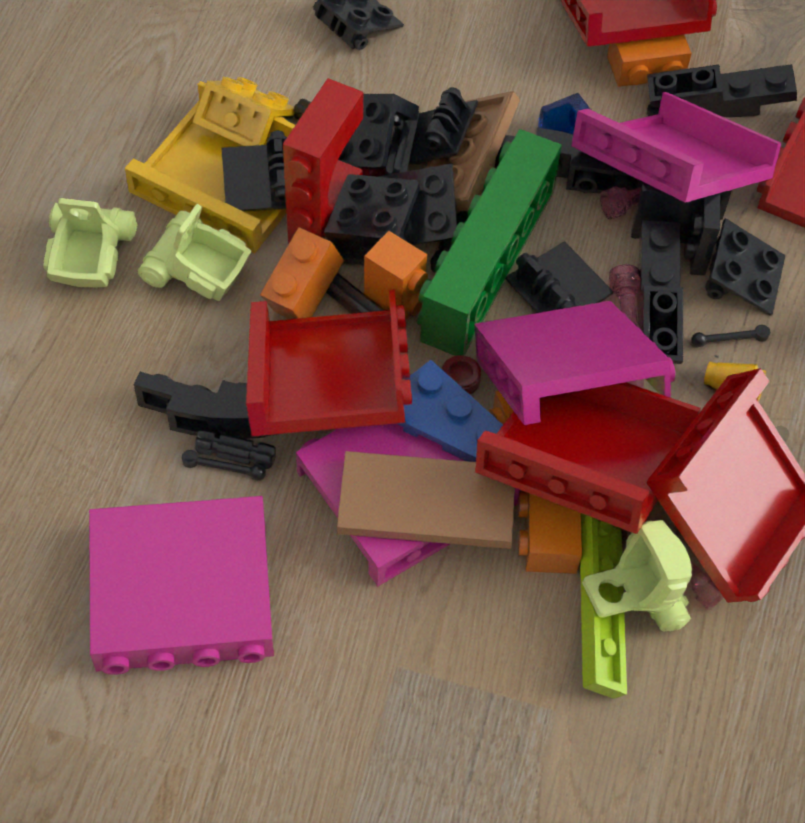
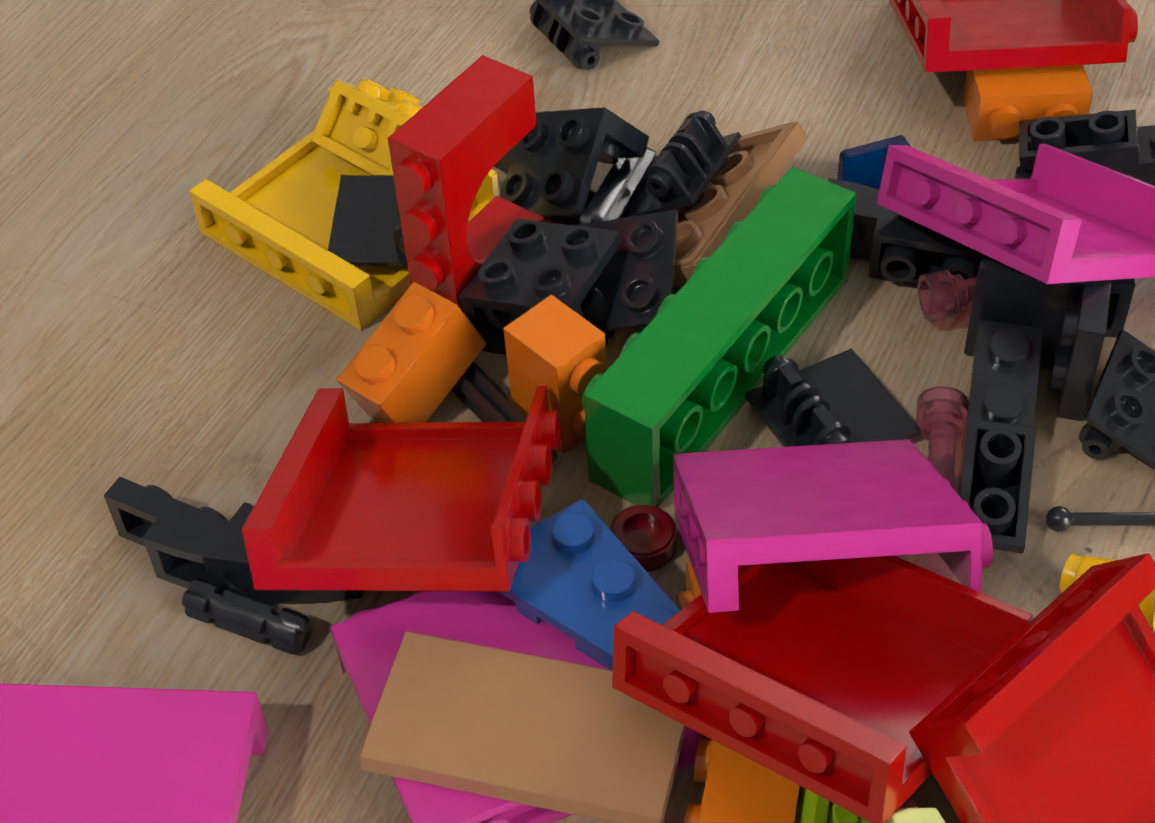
camera: 15 degrees right, 10 degrees down
(86, 242) = (104, 287): yellowish green piece -> none
(191, 459) = (174, 626): black hinge -> none
(196, 255) = (262, 319): yellowish green piece -> none

